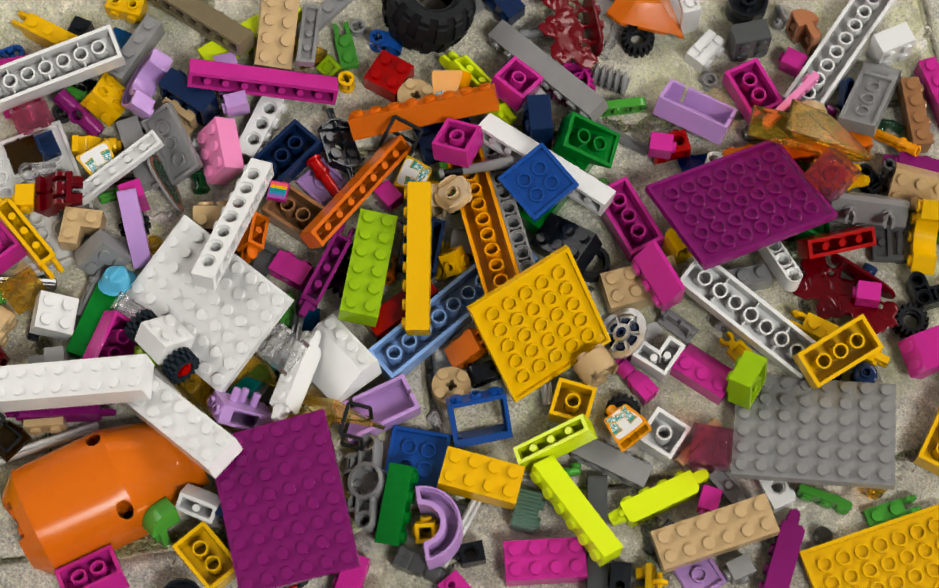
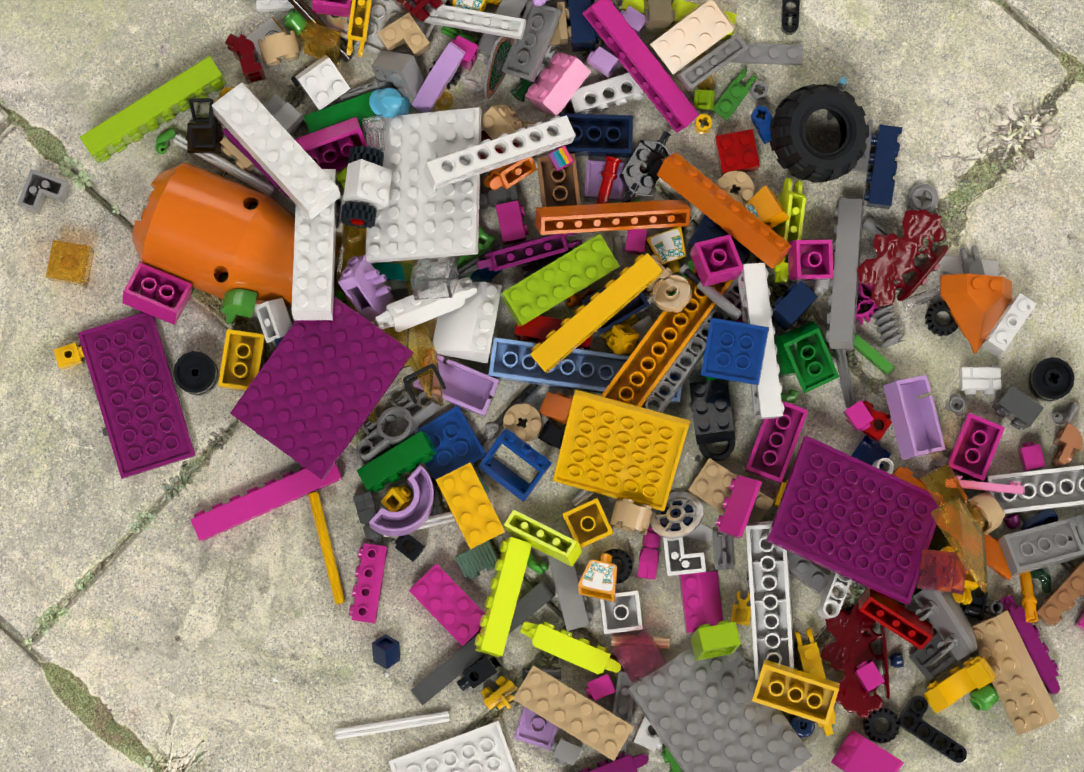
camera: 50 degrees right, 15 degrees up
(396, 133) = (694, 224): black piece -> none

